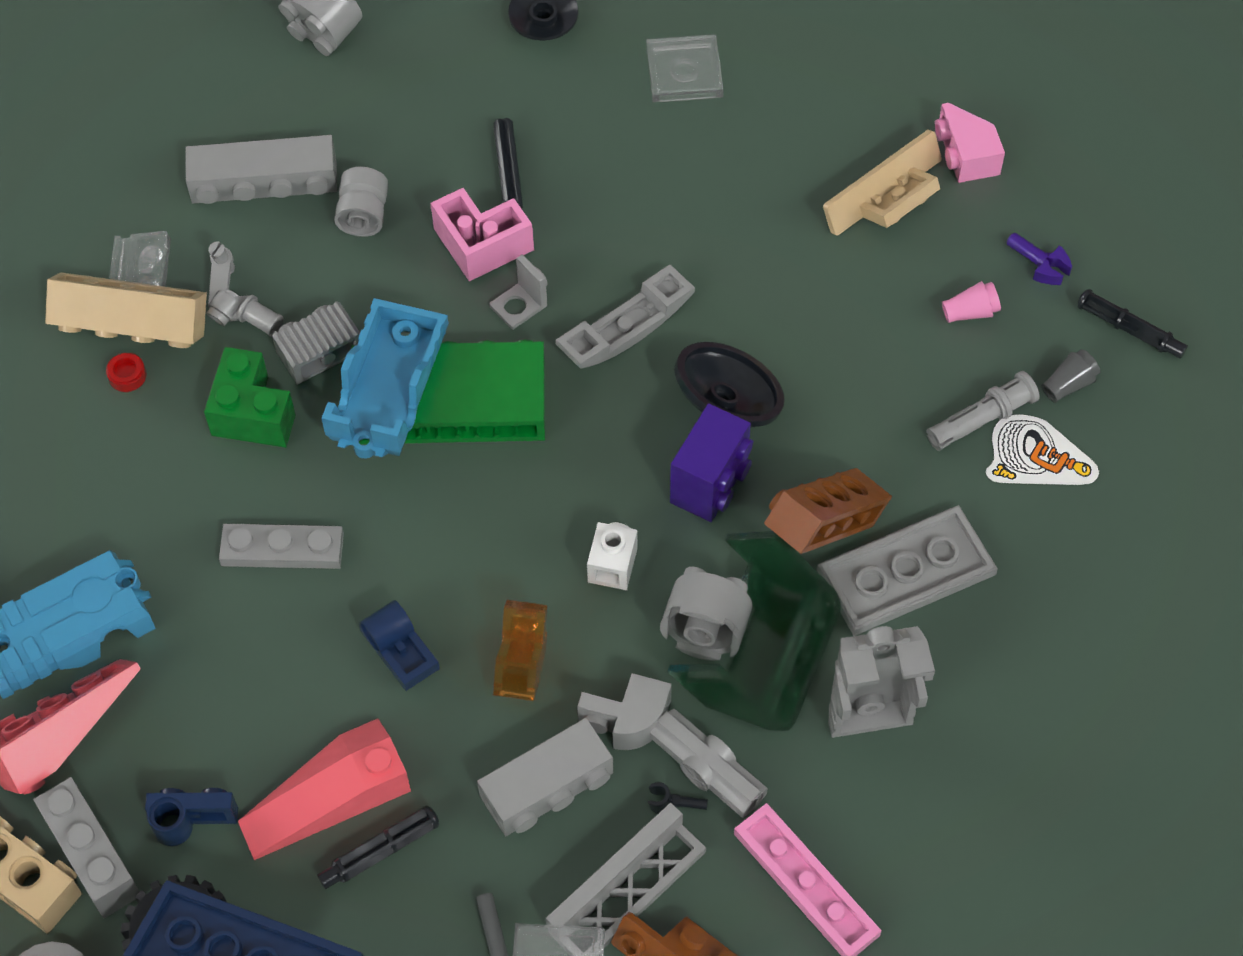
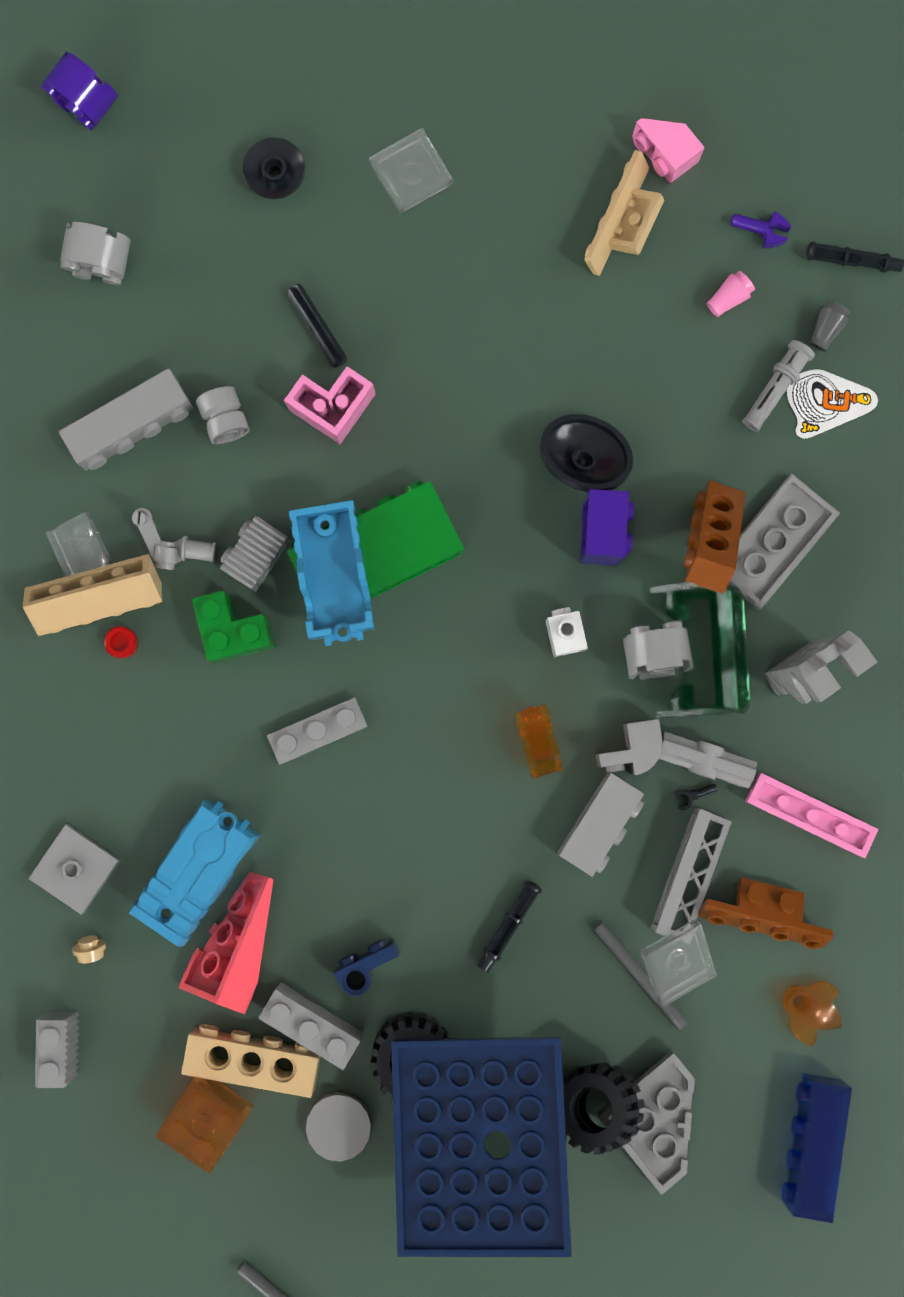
camera: 25 degrees left, 25 degrees up
(335, 785) = (454, 894): coral wedge -> none
(398, 645) = (446, 772): dark blue plate -> none
(530, 289) = (392, 431): light grey bracket -> none
(629, 322) = (479, 427): light grey slope -> none

